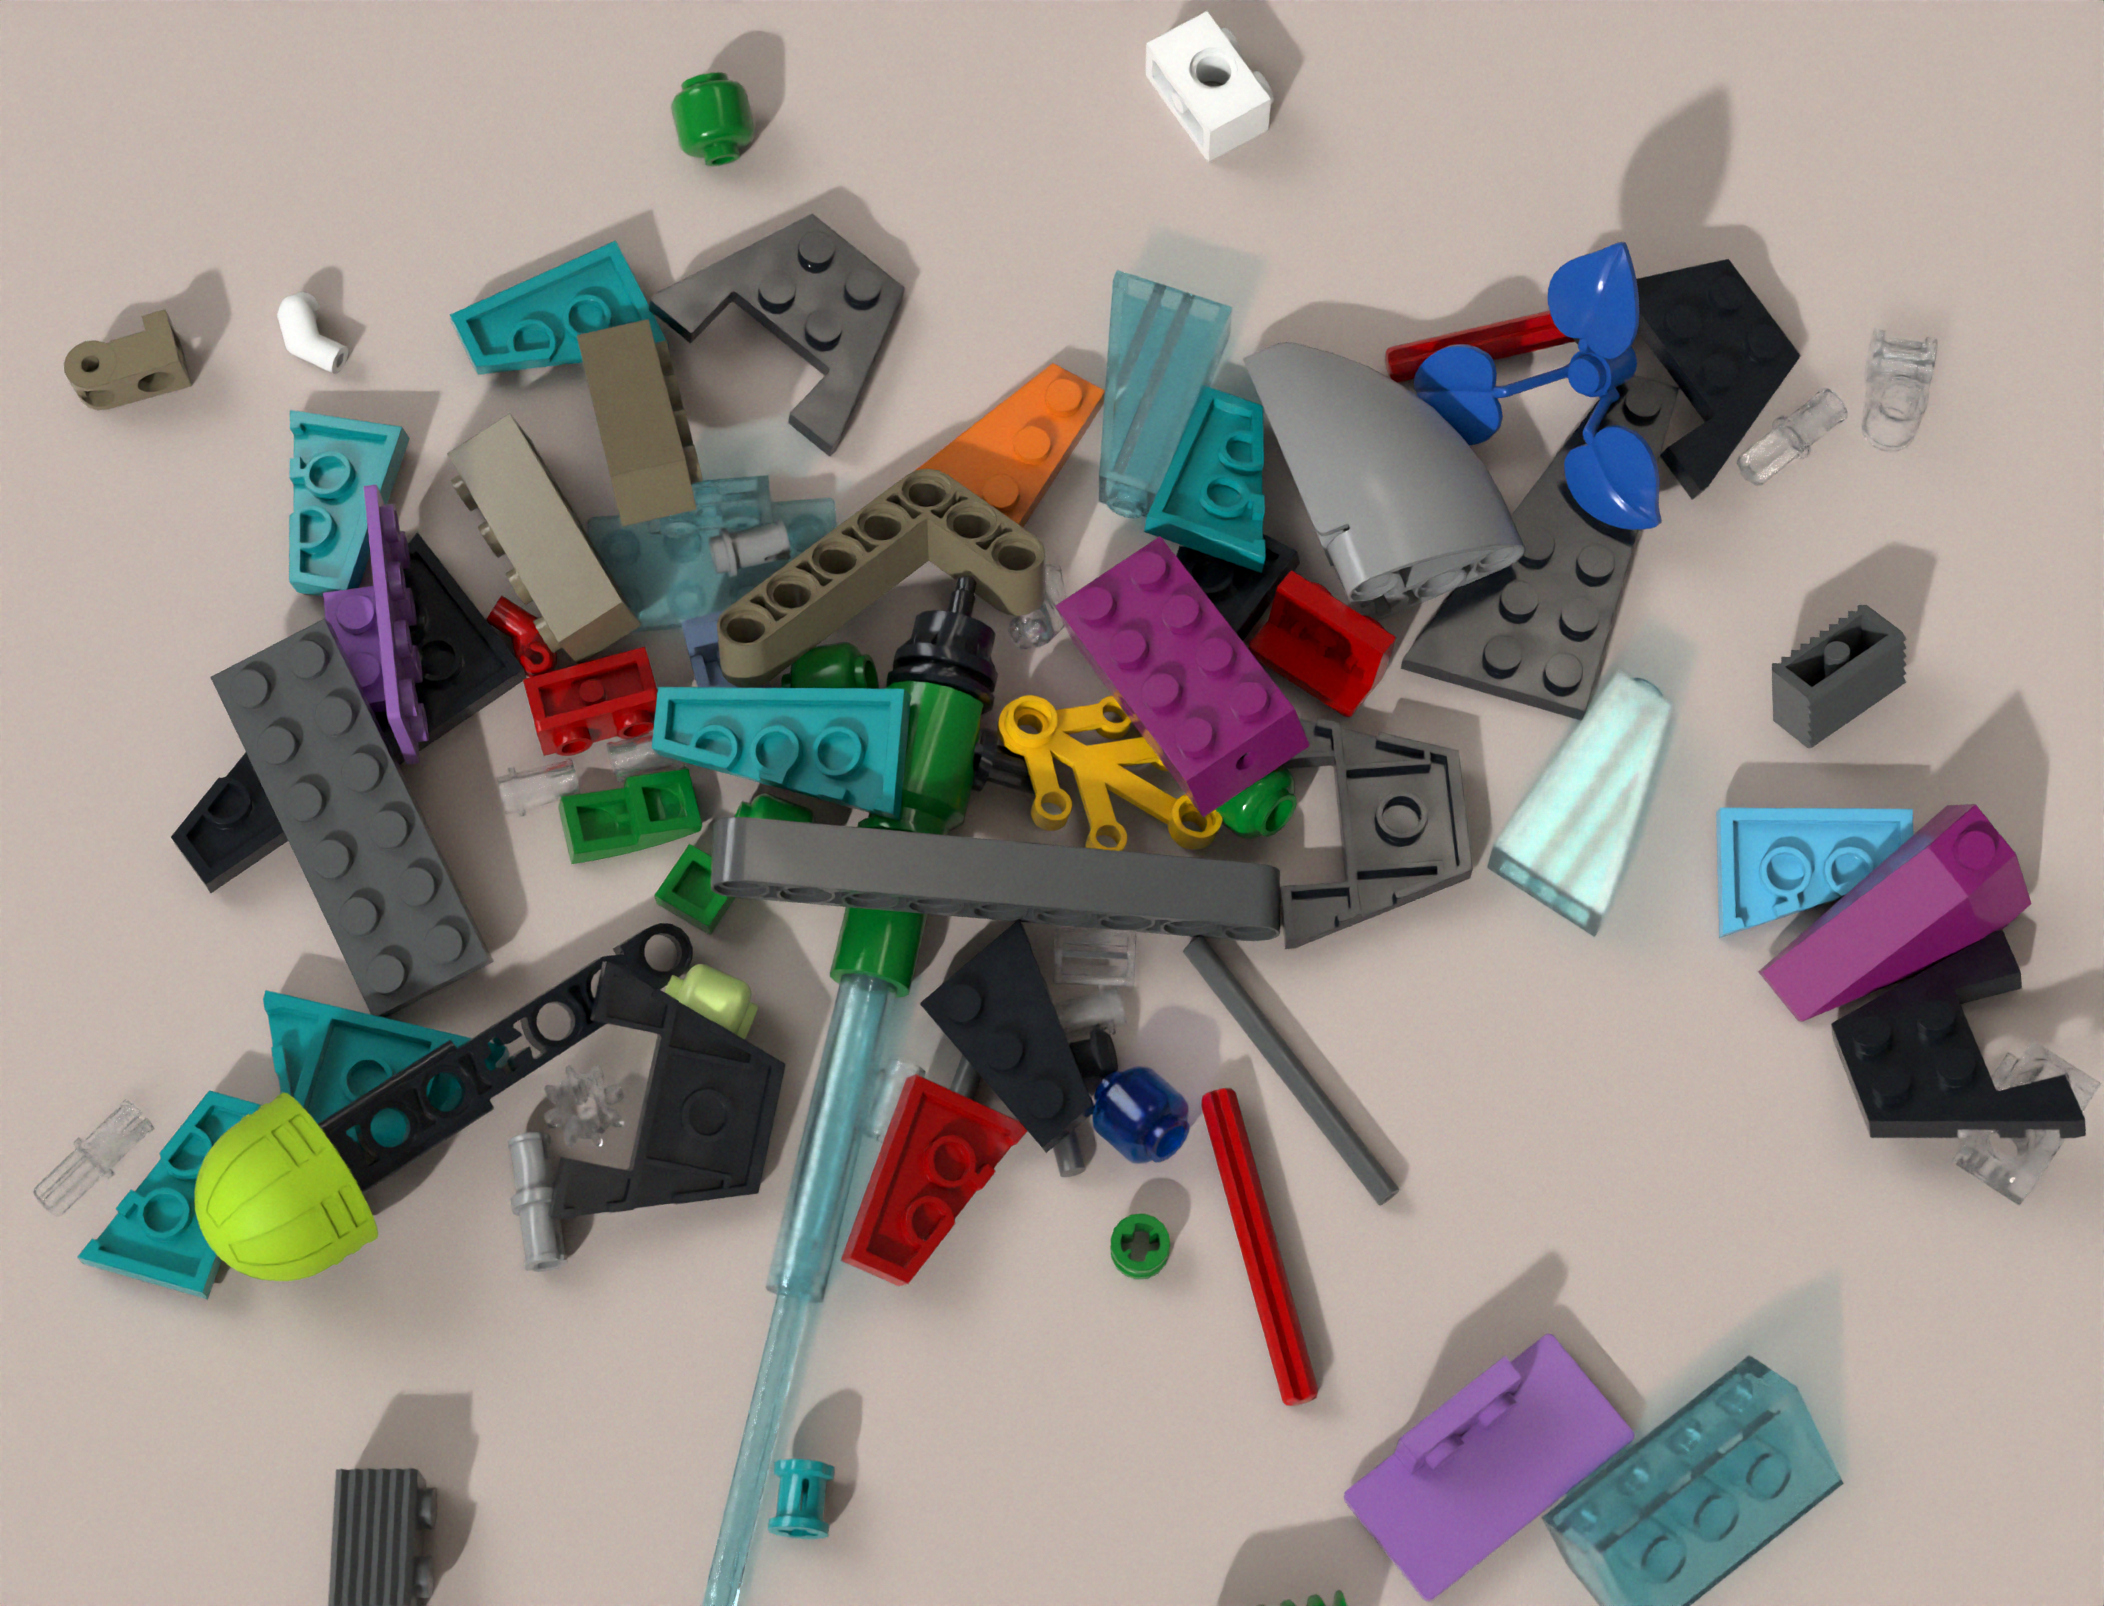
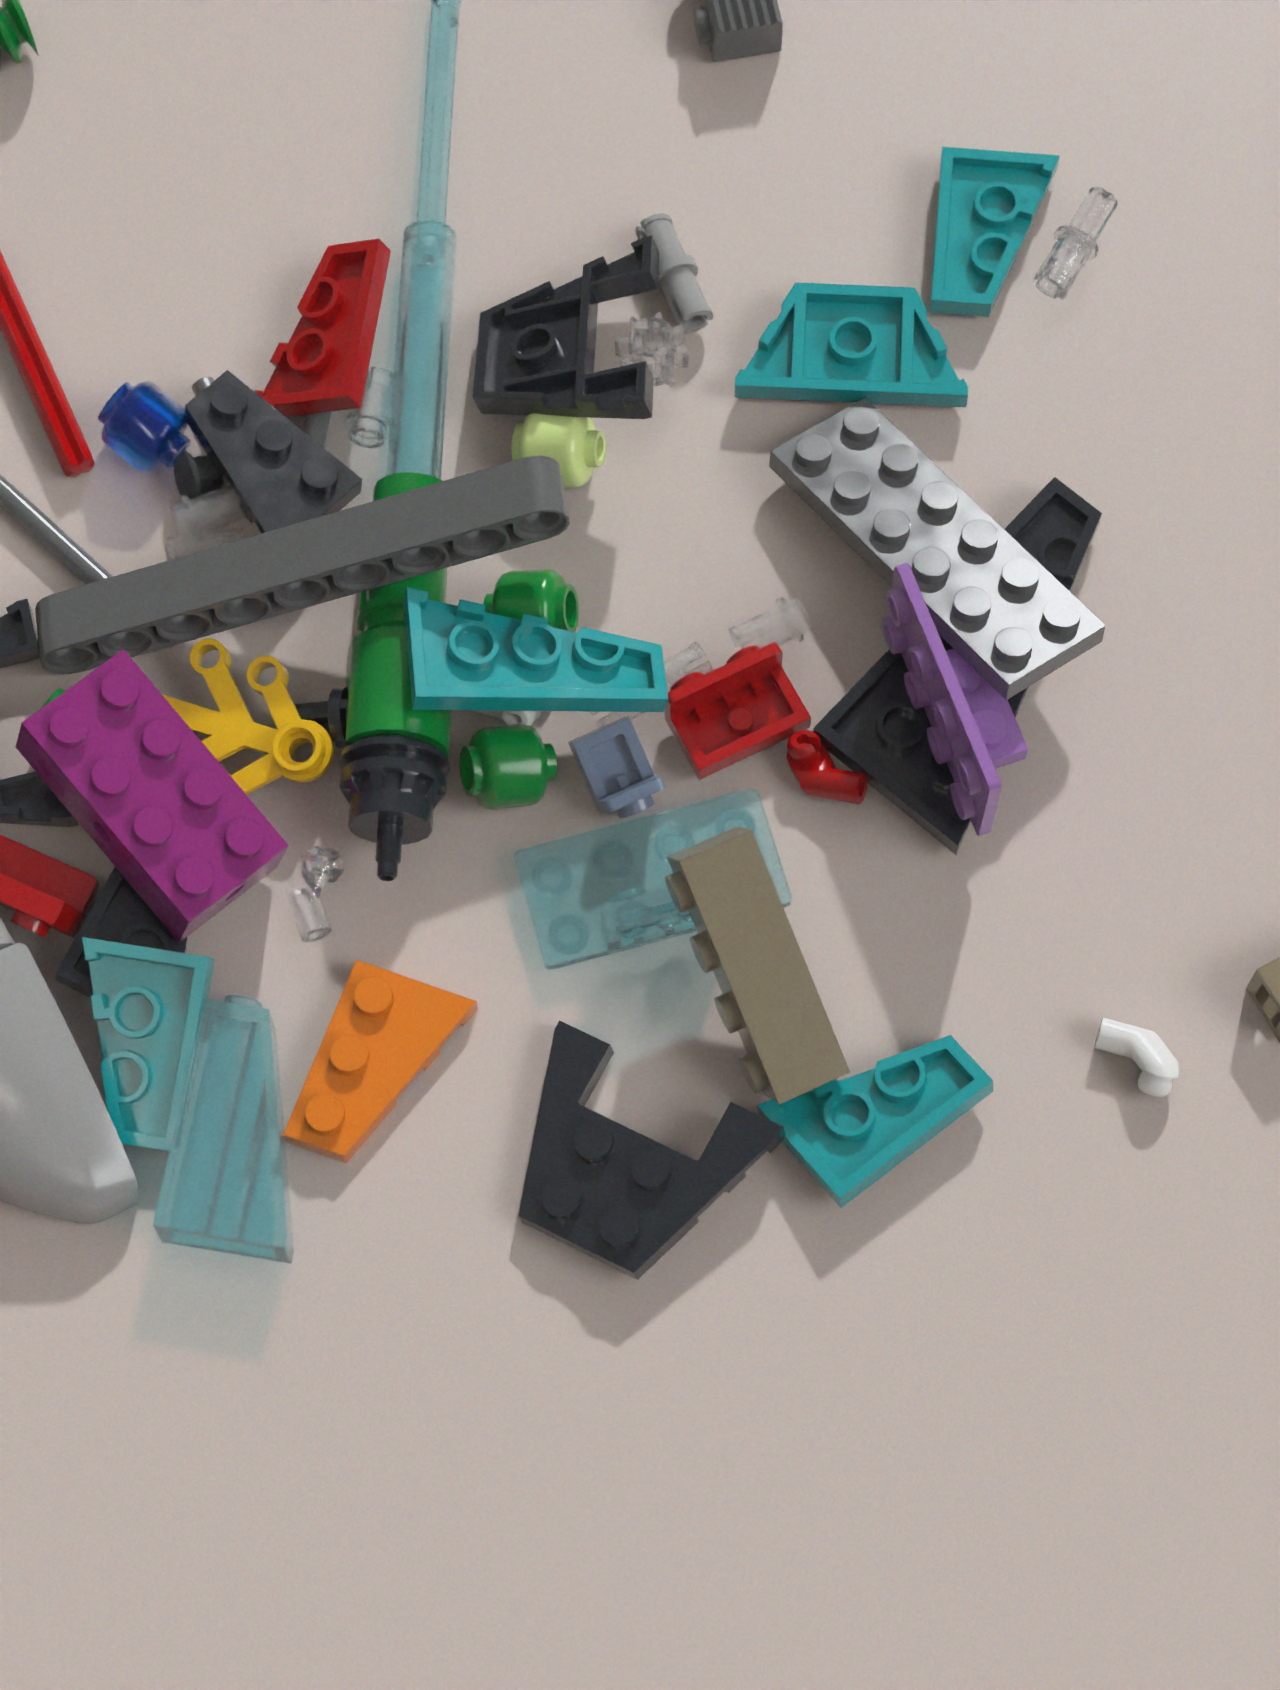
camera: 170 degrees right, 0 degrees up
(288, 1192) = (883, 204): piece -> none
(329, 510) = (1049, 879): teal wing -> none
(543, 541) = (828, 852): dark tan brick -> none
(630, 818) = (692, 613): green slope -> none
(689, 891) = (593, 559): green plate -> none
(713, 118) = (771, 1376): green head -> none
(749, 547) = (624, 873): light grey pin -> none
(813, 1479) = (391, 85): teal bush -> none
(869, 554) = (485, 872): dark tan beam -> none
(1125, 1233) = (148, 338): green bush -> none
(1211, 116) = (203, 1485): white brick -> none

